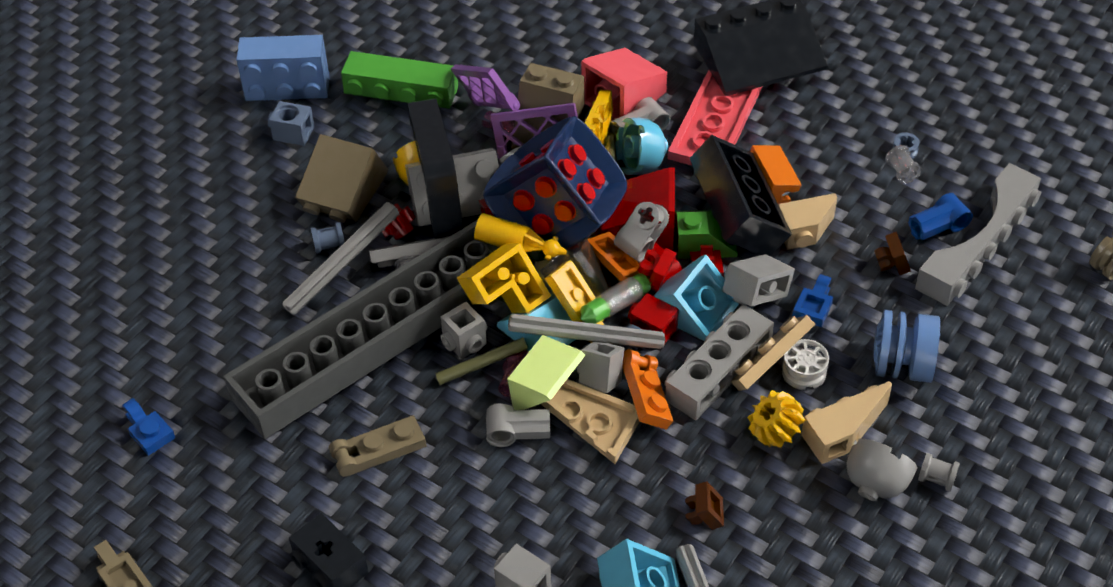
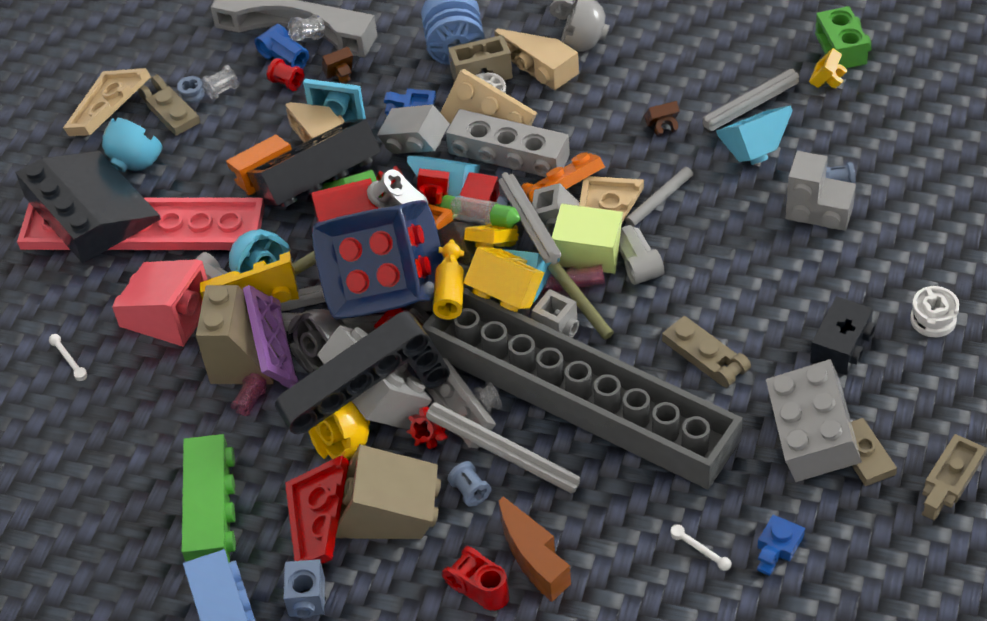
camera: 105 degrees left, 0 degrees up
(197, 528) = (876, 462): none -> dark tan plate
(204, 367) = (677, 533): none -> white hinge
(234, 222) = (474, 575): none -> red piece
(236, 483) = (813, 421): none -> light grey brick
(241, 259) = (534, 551): none -> dark orange slope
(379, 139) = (315, 509): none -> red wing
(485, 87) = (222, 389): medium lavender window -> none
(582, 38) = (79, 372): none -> white hinge
(597, 474) = (659, 196): none -> light grey bar
(776, 419) = (551, 81): yellow gear -> none
(828, 86) = (128, 146): none -> medium azure cylinder
(831, 234) = (340, 97): none -> medium azure slope
(846, 360) = (482, 56): none -> dark tan brick
(883, 129) = (169, 106): none -> dark tan hinge
(898, 212) = (285, 74): none -> red bush
(905, 81) = (104, 99): none -> tan wing
(951, 229) = (306, 28): none -> clear bush

